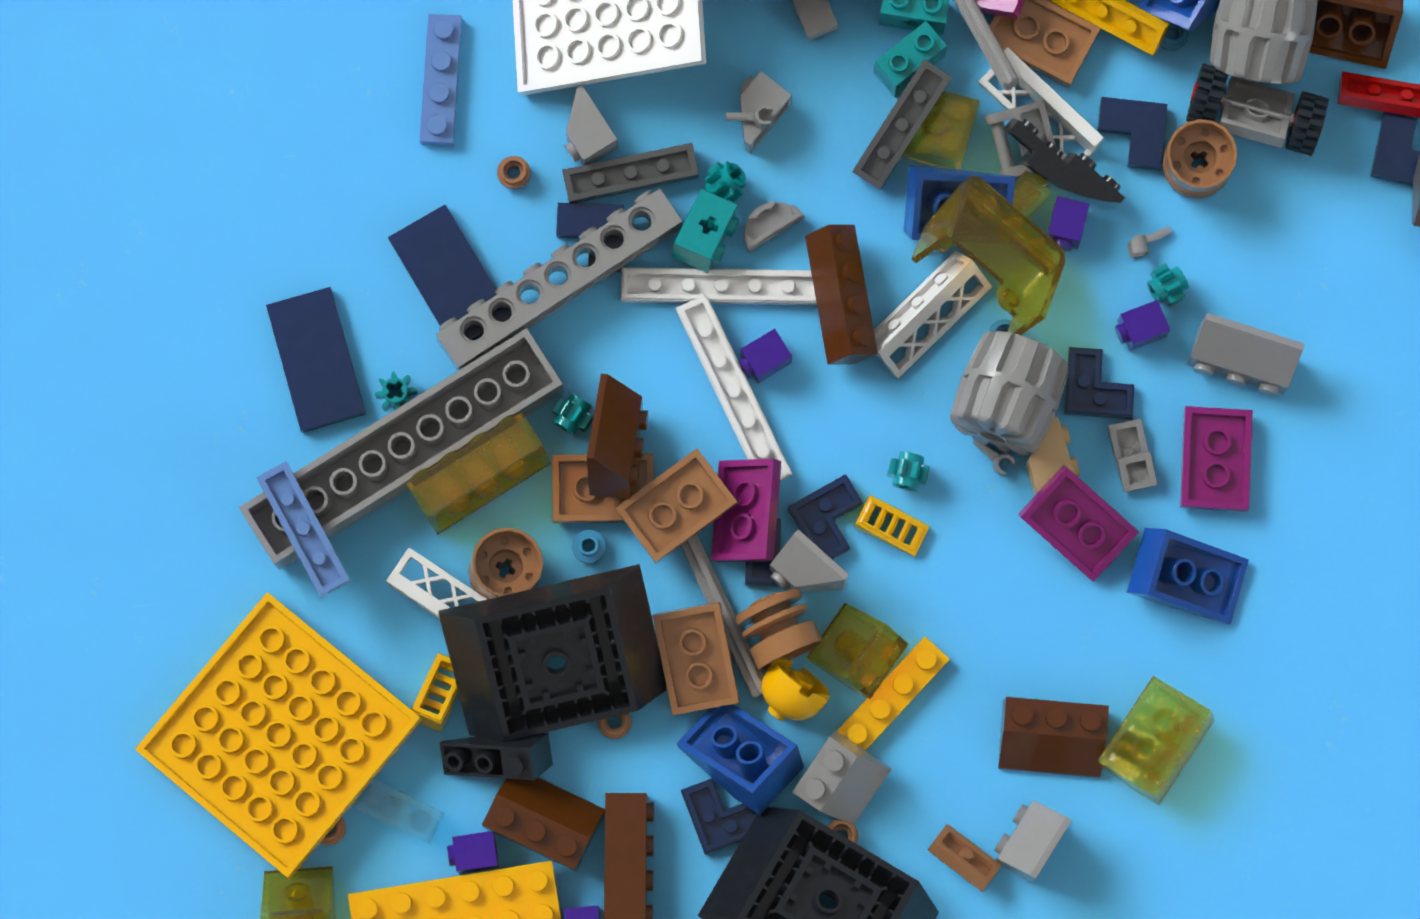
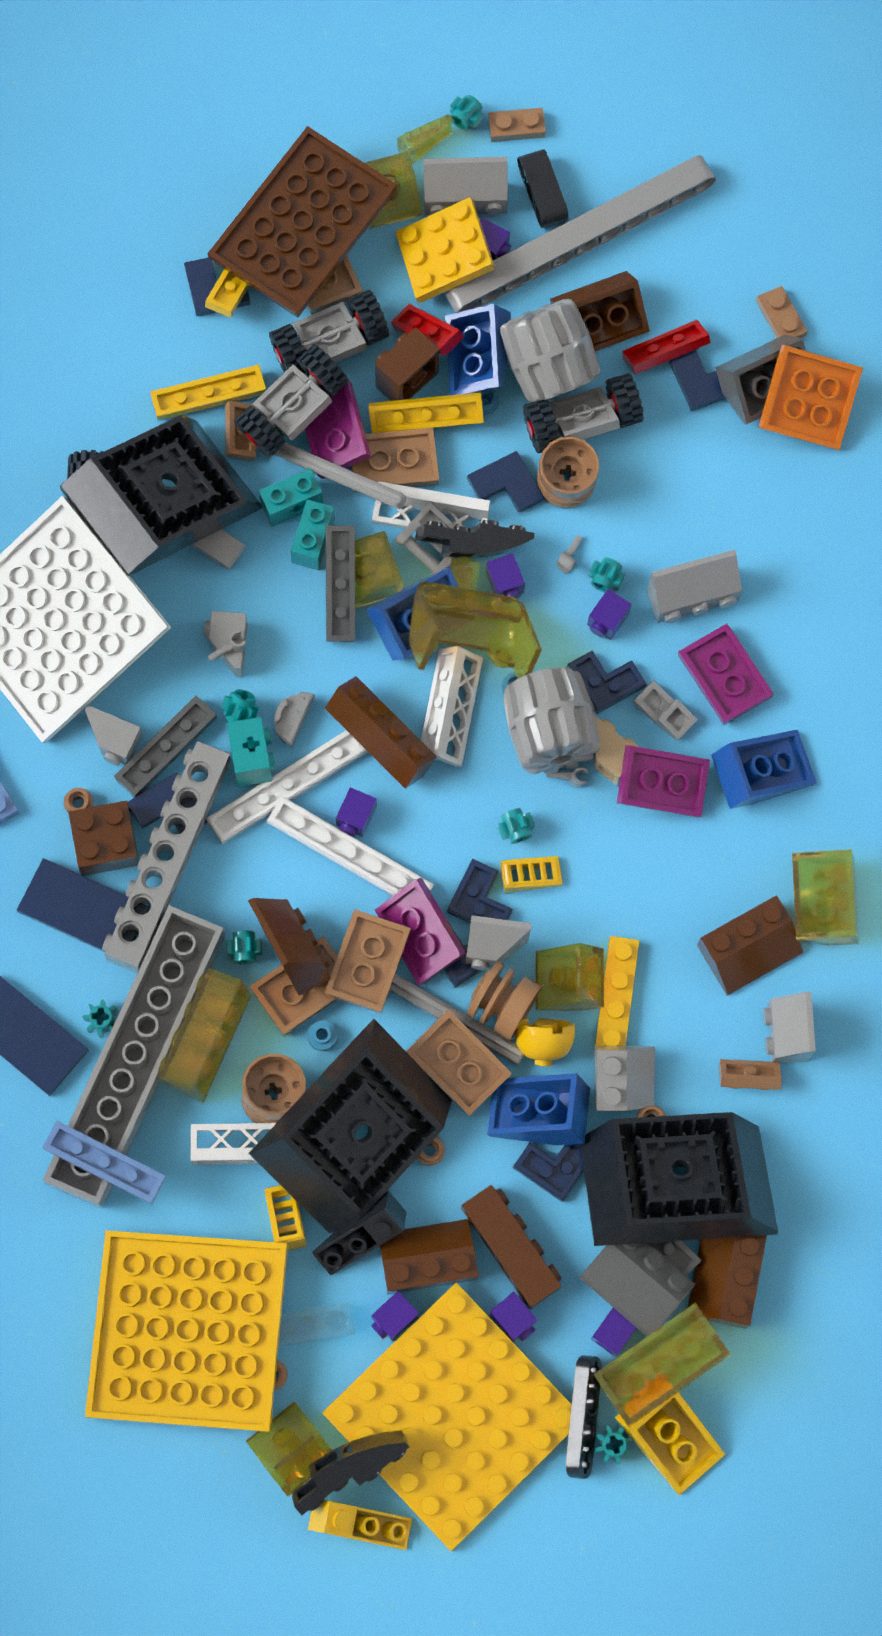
camera: 40 degrees left, 5 degrees down
(513, 223) = (104, 838): none -> reddish brown brick

